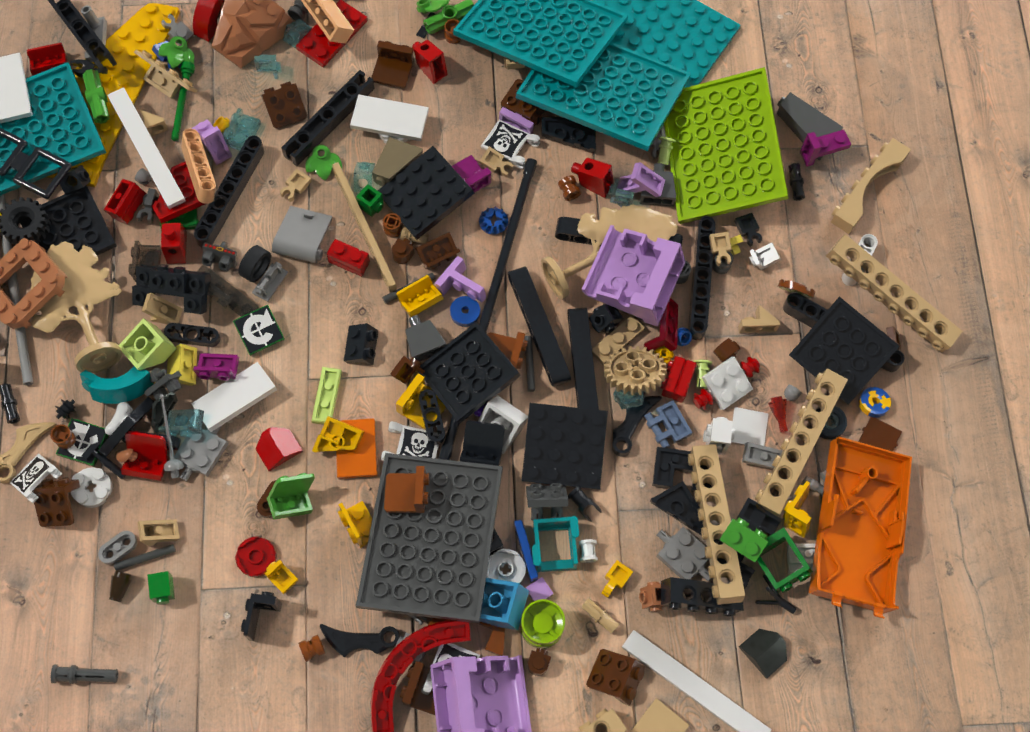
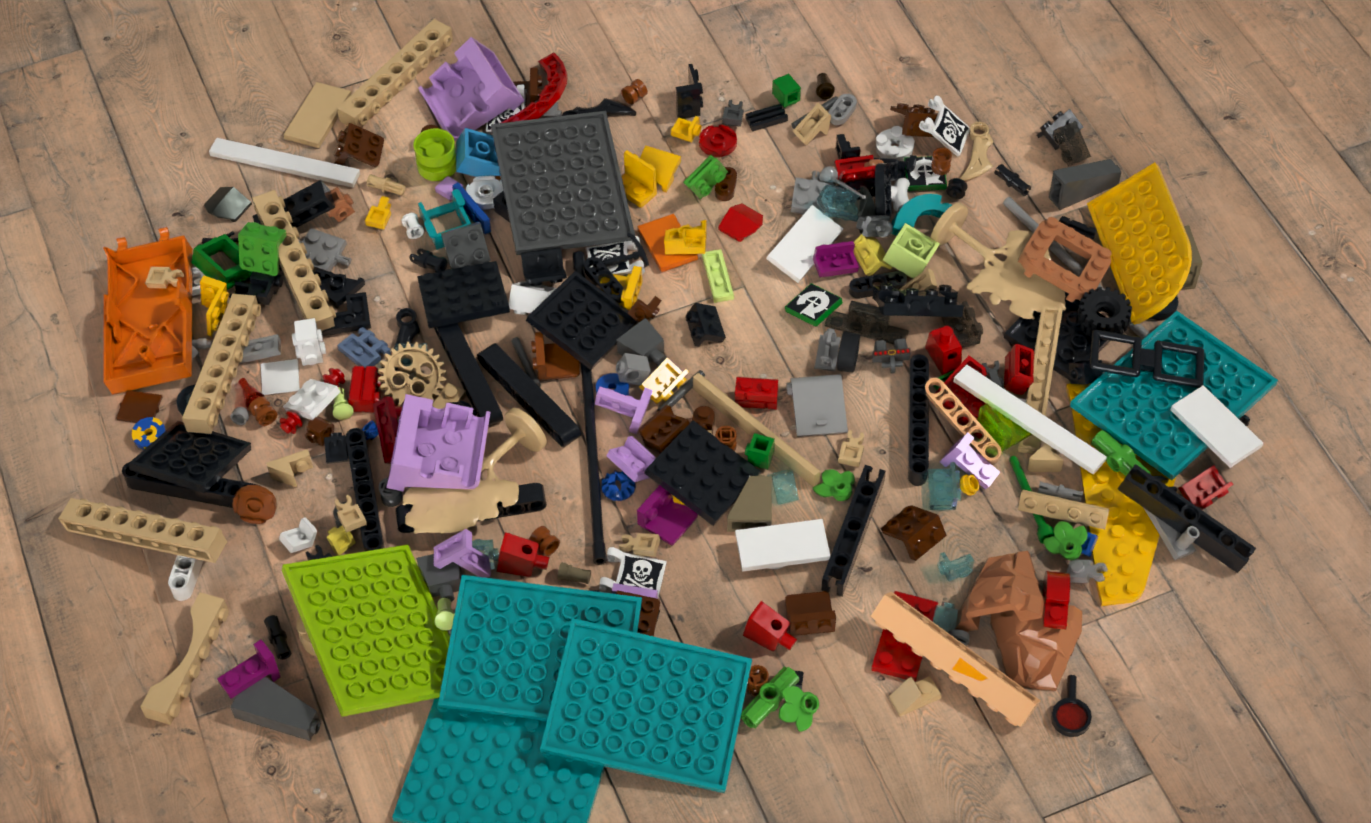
camera: 165 degrees right, 15 degrees down
(74, 674) = (824, 23): dark grey pin -> none
(94, 208) = (1043, 369): none -> tan tile
(144, 493) = (844, 149): none -> black bracket
(156, 97) = (1060, 491): none -> light grey pin
(171, 150) = (1001, 428): none -> clear neon green bracket
(177, 568) = (764, 116): none -> black tile
(227, 579) = (733, 114): none -> dark grey plate
(327, 540) = (664, 163): none -> yellow slope
(404, 438) = (624, 258): none -> black piece
(406, 491) = (597, 200): dark orange bracket -> none
(442, 313) = (633, 369): none -> light grey brick
(475, 232) = (632, 459): none -> lavender bracket
(558, 157) = (567, 573): none -> dark tan pin
(716, 330) = (336, 448): none -> black bracket
(771, 386) = (264, 414): none -> dark orange wheel
(844, 555) = (162, 276): none -> tan plate
(894, 335) = (136, 496): reddish brown plate -> none

